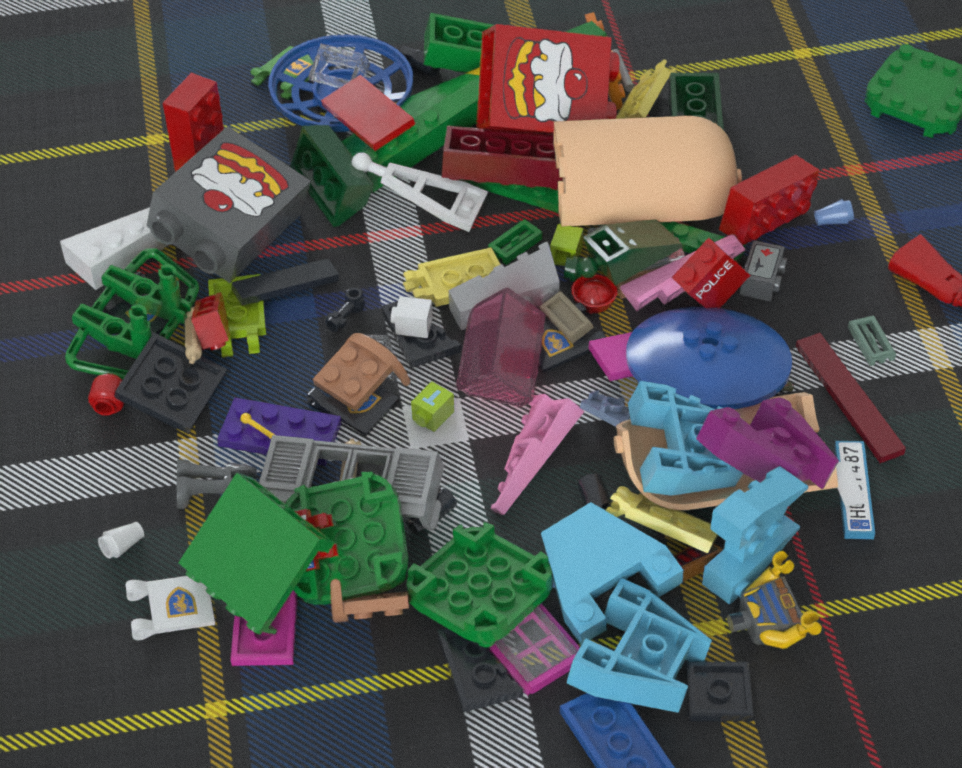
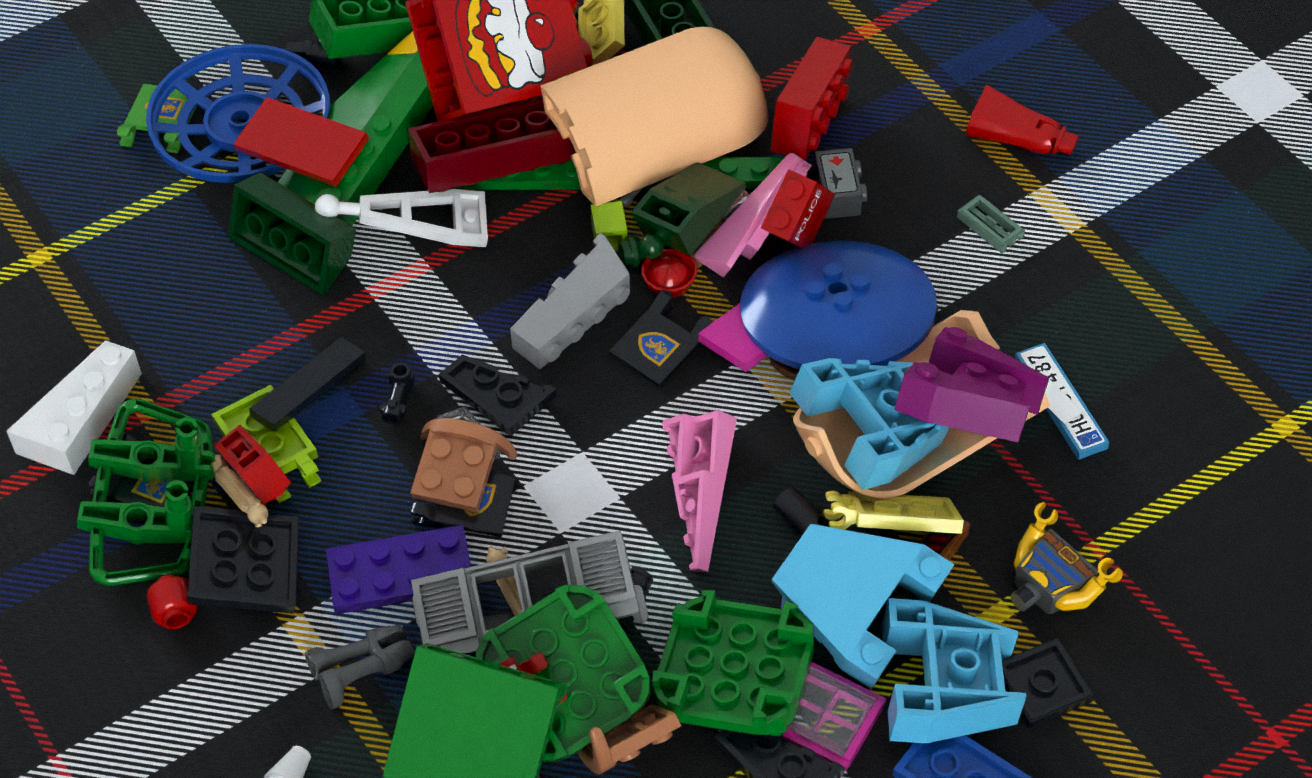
camera: 25 degrees left, 5 degrees up
(192, 117) = (107, 232): red brick -> none
(227, 204) = (195, 314): dark grey brick -> none
(246, 419) = (359, 570): yellow hinge -> none
(341, 57) = (228, 82): clear tile -> none
(412, 317) = (487, 375): white brick -> none
(432, 406) = (563, 474): lime brick -> none
(446, 273) = (496, 308): light yellow tile -> none
(502, 349) = (608, 379): clear pink windscreen -> none
(518, 243) = (538, 260): green tile -> none
(566, 317) = (656, 313): dark tan tile -> none
(606, 408) = (763, 406): sand blue piece -> none
(753, 532) = (1002, 495): medium azure wedge -> none
(835, 213) = (880, 88): medium blue cone -> none
(850, 398) = (1002, 297): dark red tile -> none

